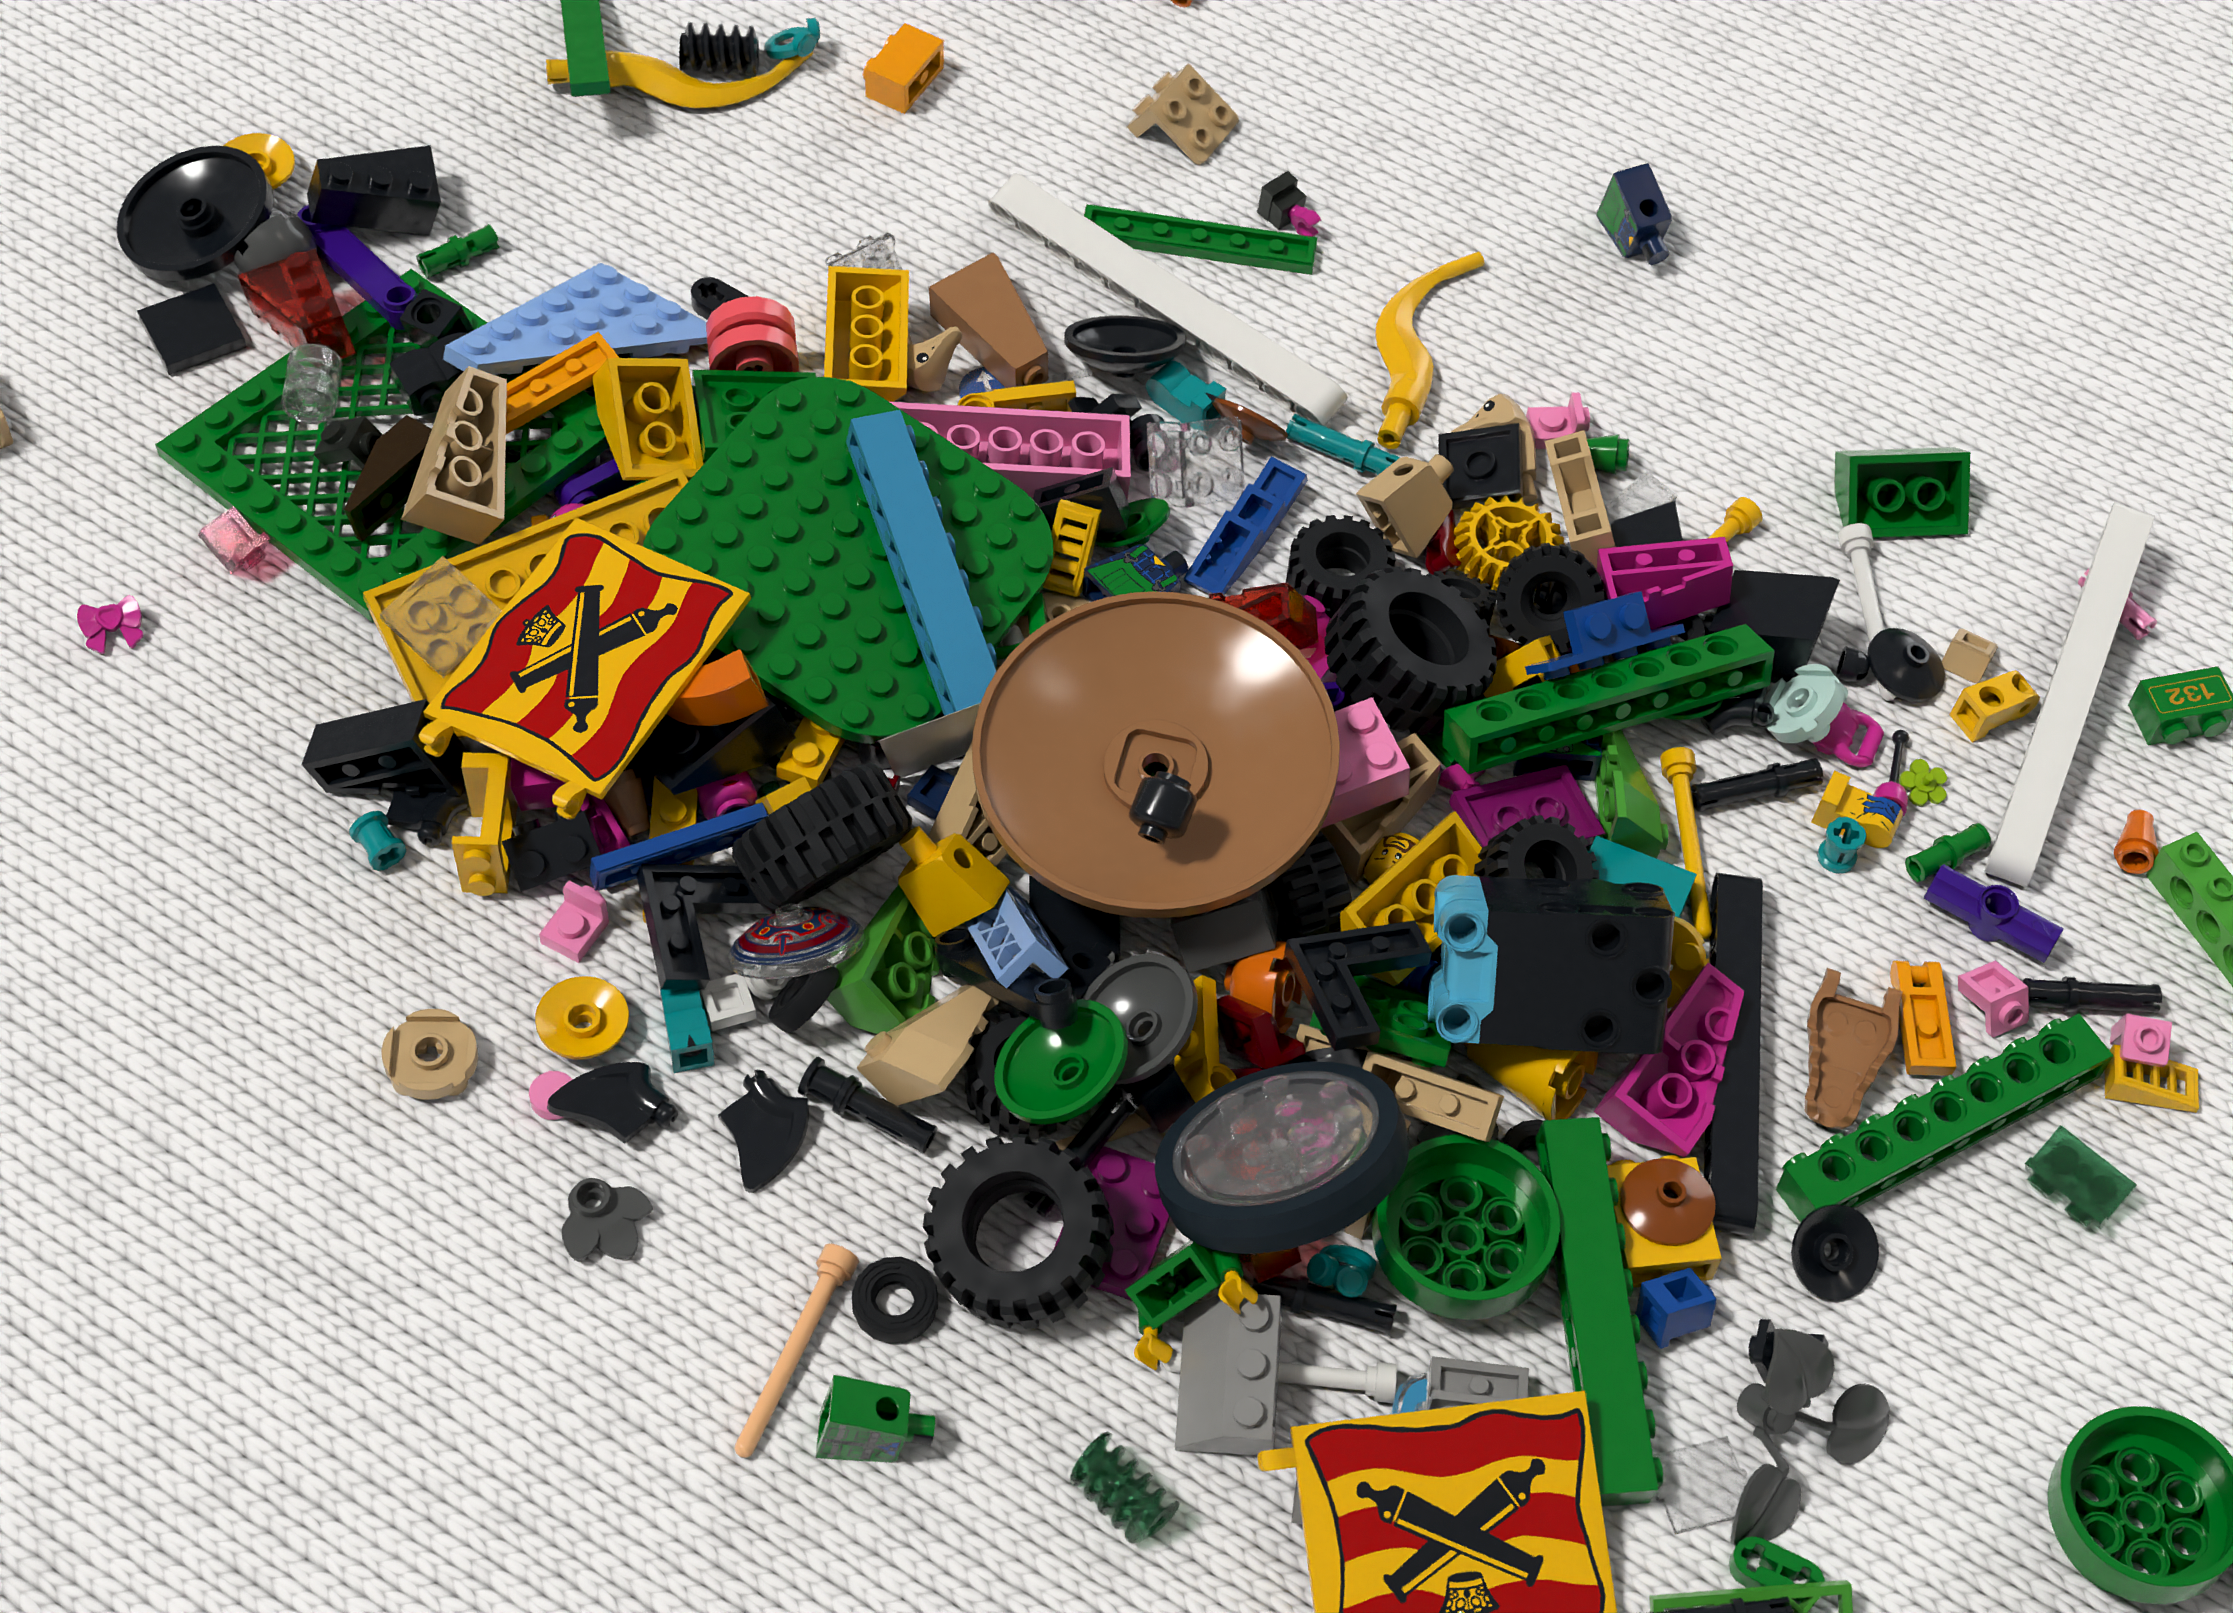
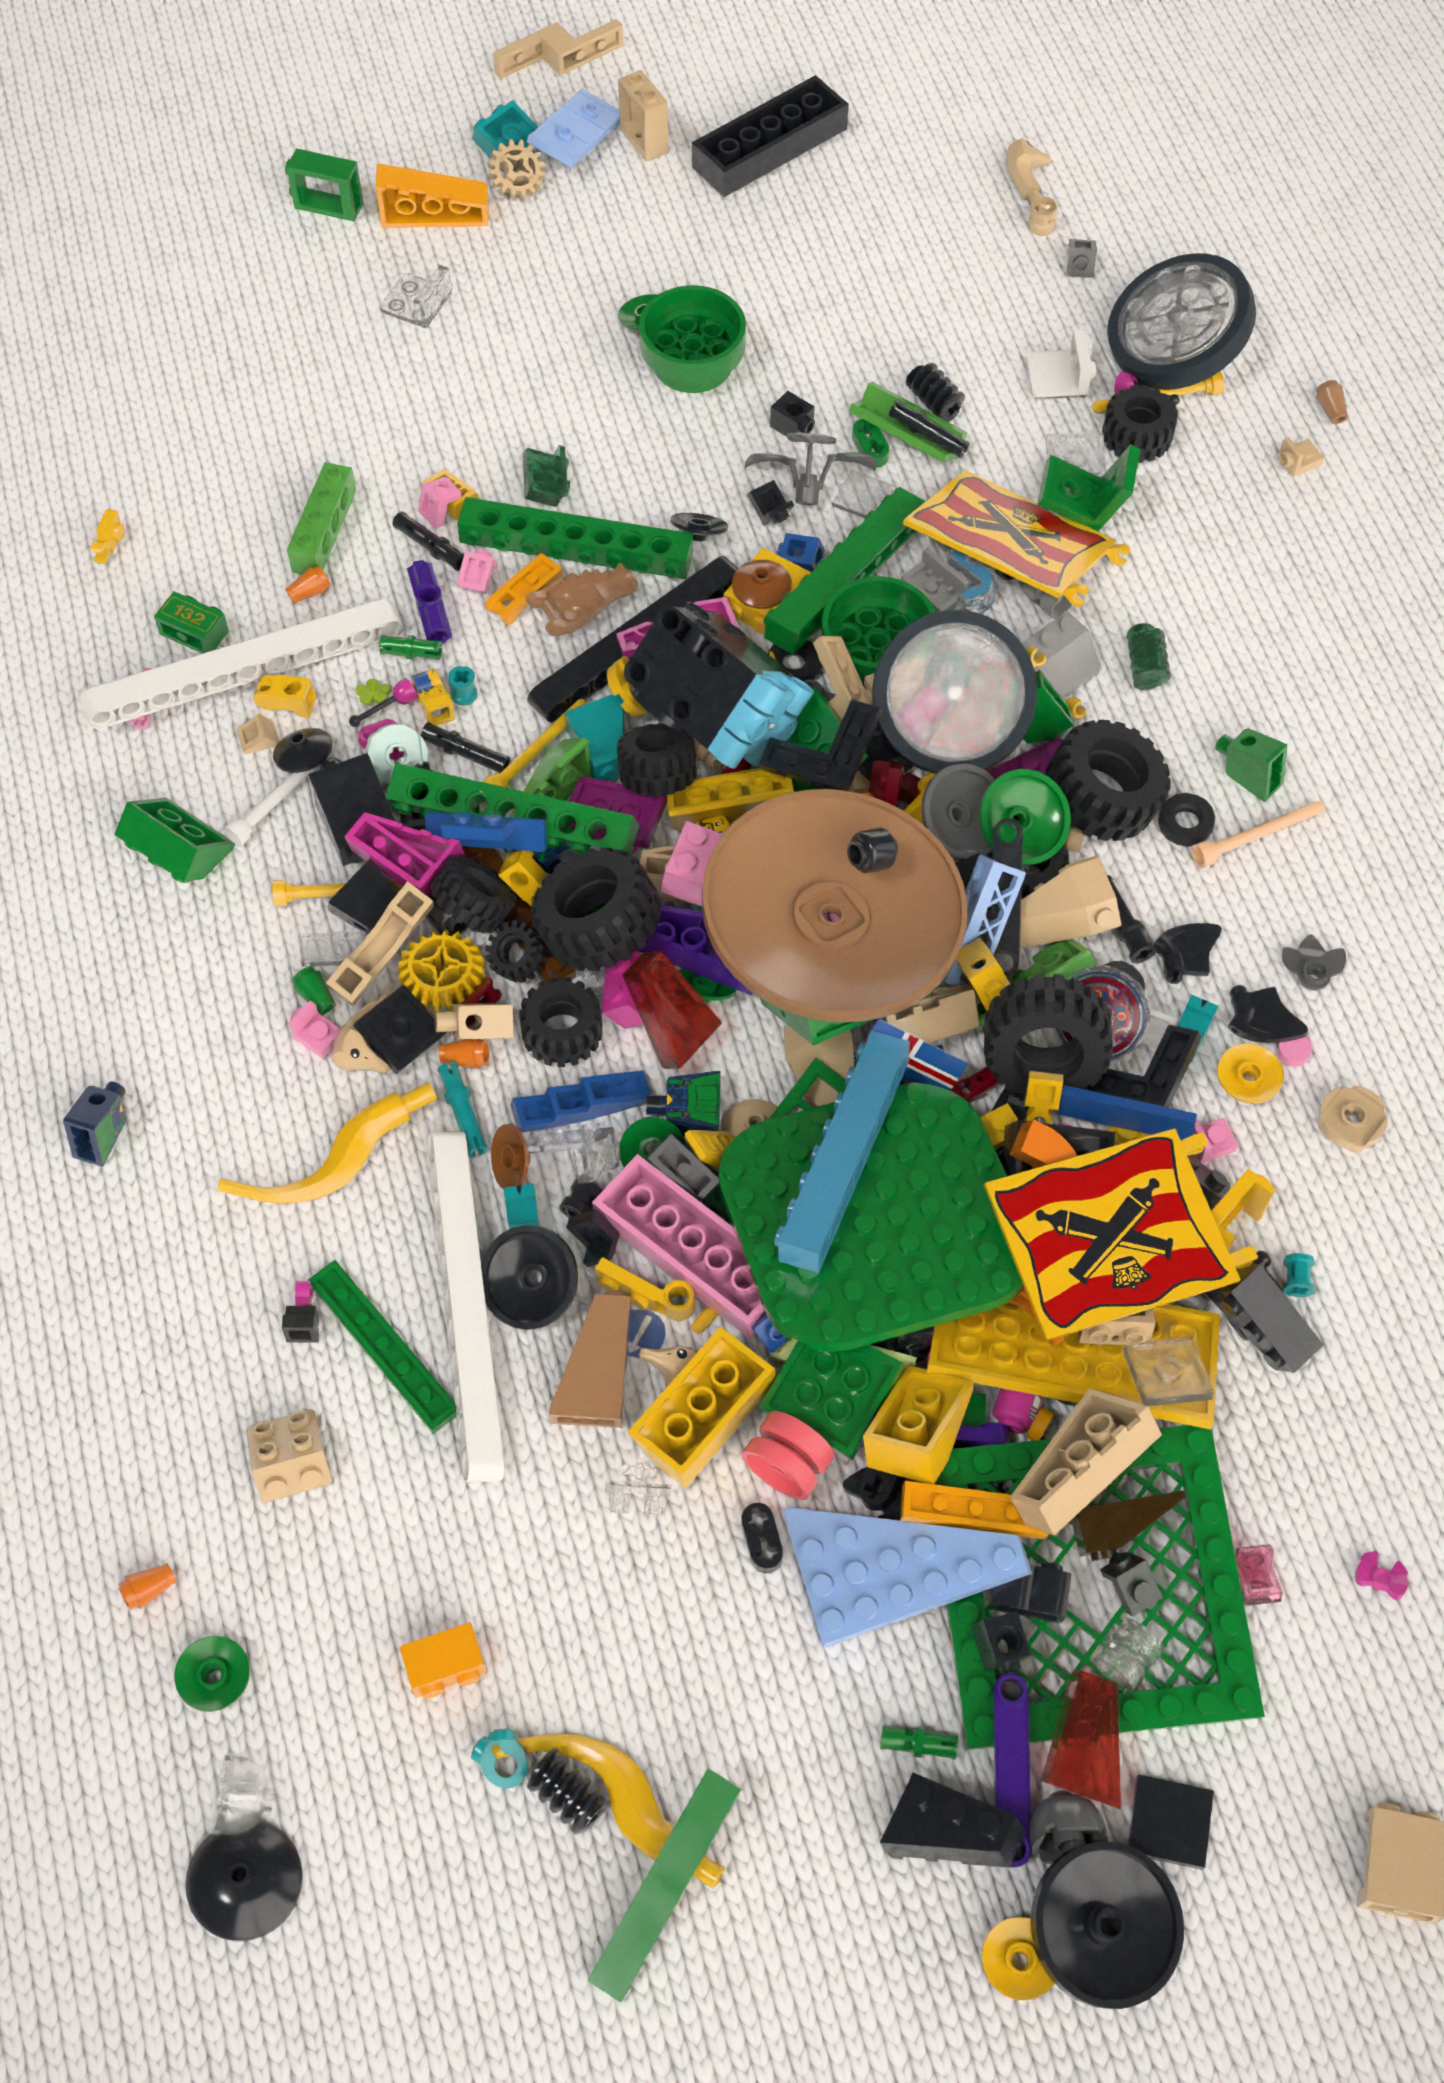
camera: 135 degrees left, 5 degrees up
(1920, 1506) = (792, 415): none -> black brick

